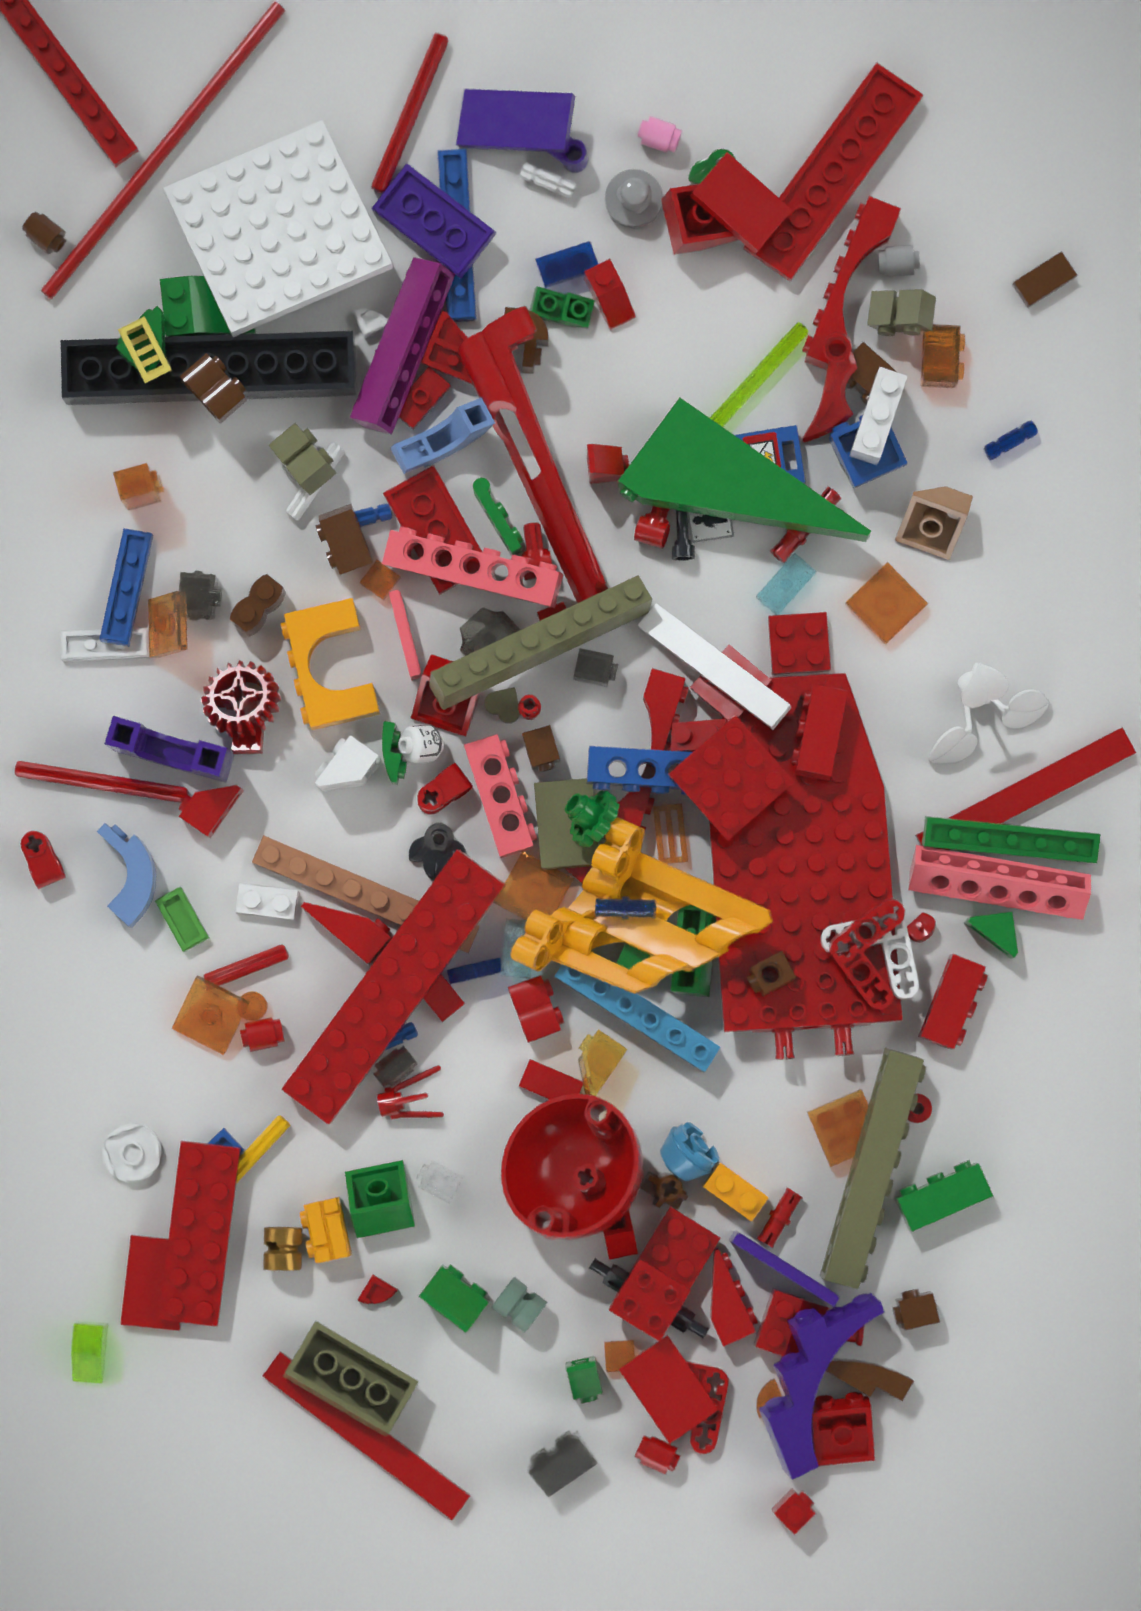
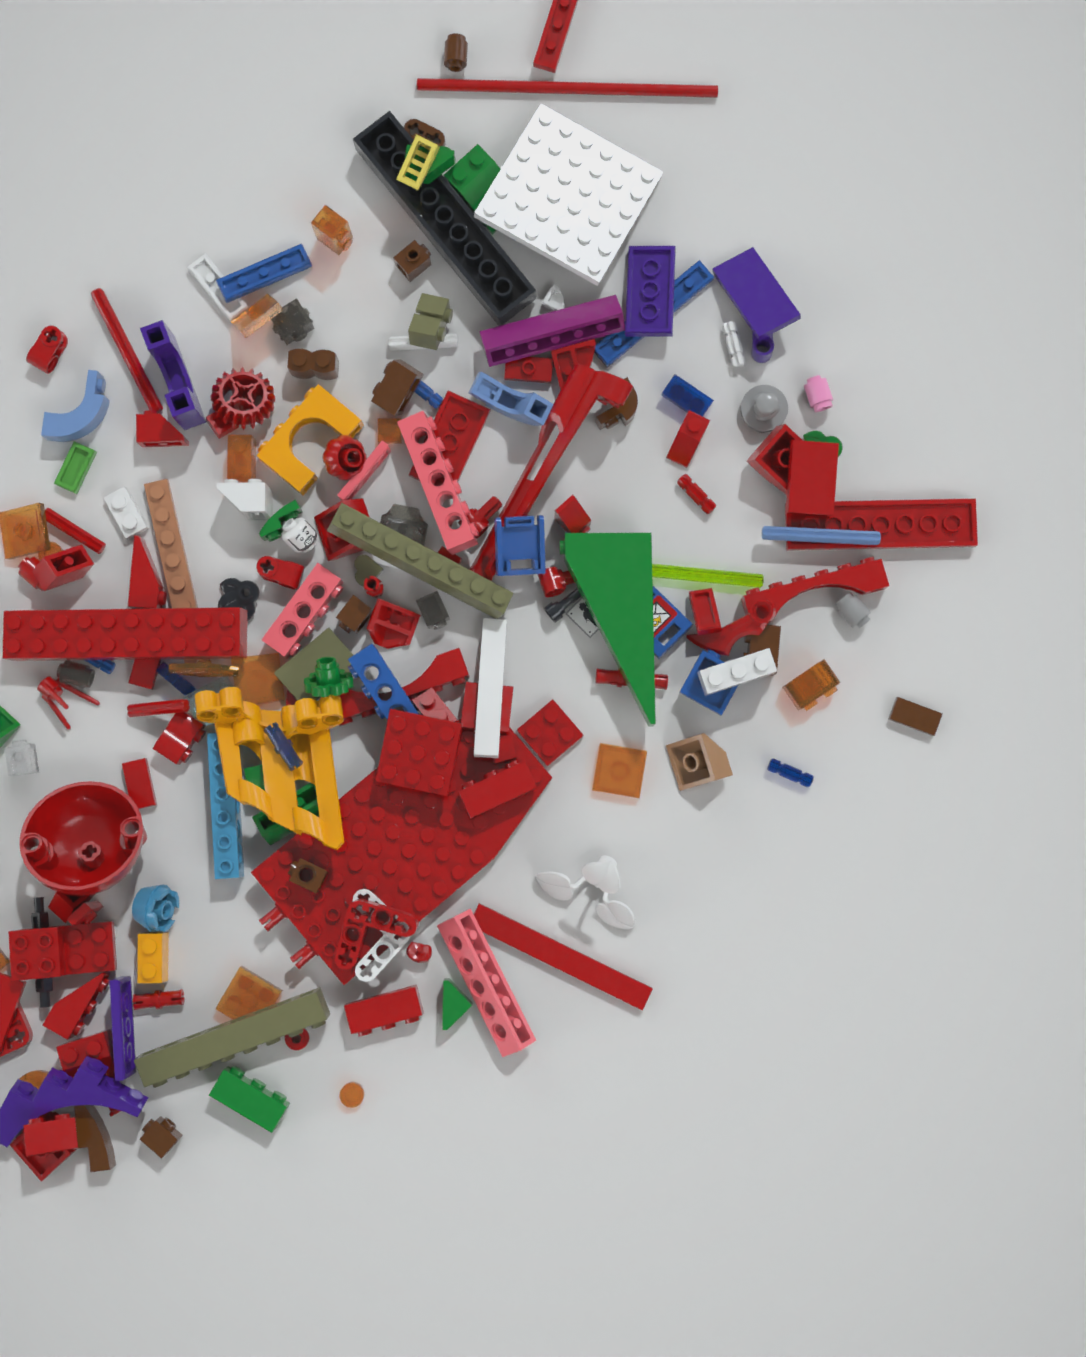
camera: 55 degrees right, 0 degrees up
(102, 320) = (426, 131): none -> reddish brown beam
(214, 388) = (429, 227): reddish brown brick -> none
(227, 435) = (413, 260): none -> reddish brown brick
(281, 999) = (63, 567): none -> red brick
(301, 745) = (241, 458): none -> clear orange brick
(377, 642) = (344, 457): none -> red plant
(410, 113) = (711, 224): red axle -> none
(488, 931) = (203, 668): none -> clear orange plate
(491, 1007) = (158, 708): none -> red axle
(497, 514) = (486, 474): green plate -> none
(562, 308) = (656, 415): green slope -> none
(578, 718) = (392, 625): none -> red slope
(592, 529) = (519, 541): none -> blue container
(598, 1060) = (173, 804): clear yellow slope -> none
(645, 1224) = (85, 913): none -> red plate
(665, 1189) = (121, 909): reddish brown piece -> none
(668, 808) = (345, 755): clear orange tile -> none
(669, 326) = (696, 494): none -> red axle
(786, 584) = (583, 695): clear light blue plate -> none
(792, 404) = (704, 611): none -> red tile
(802, 237) = (821, 535): none -> medium blue axle
(841, 1410) = (50, 1135): none -> red brick
(907, 313) = (821, 640): olive piece -> none
(1011, 839) = (521, 969): green plate -> none
(1011, 1094) = (352, 1094): none -> clear orange tile

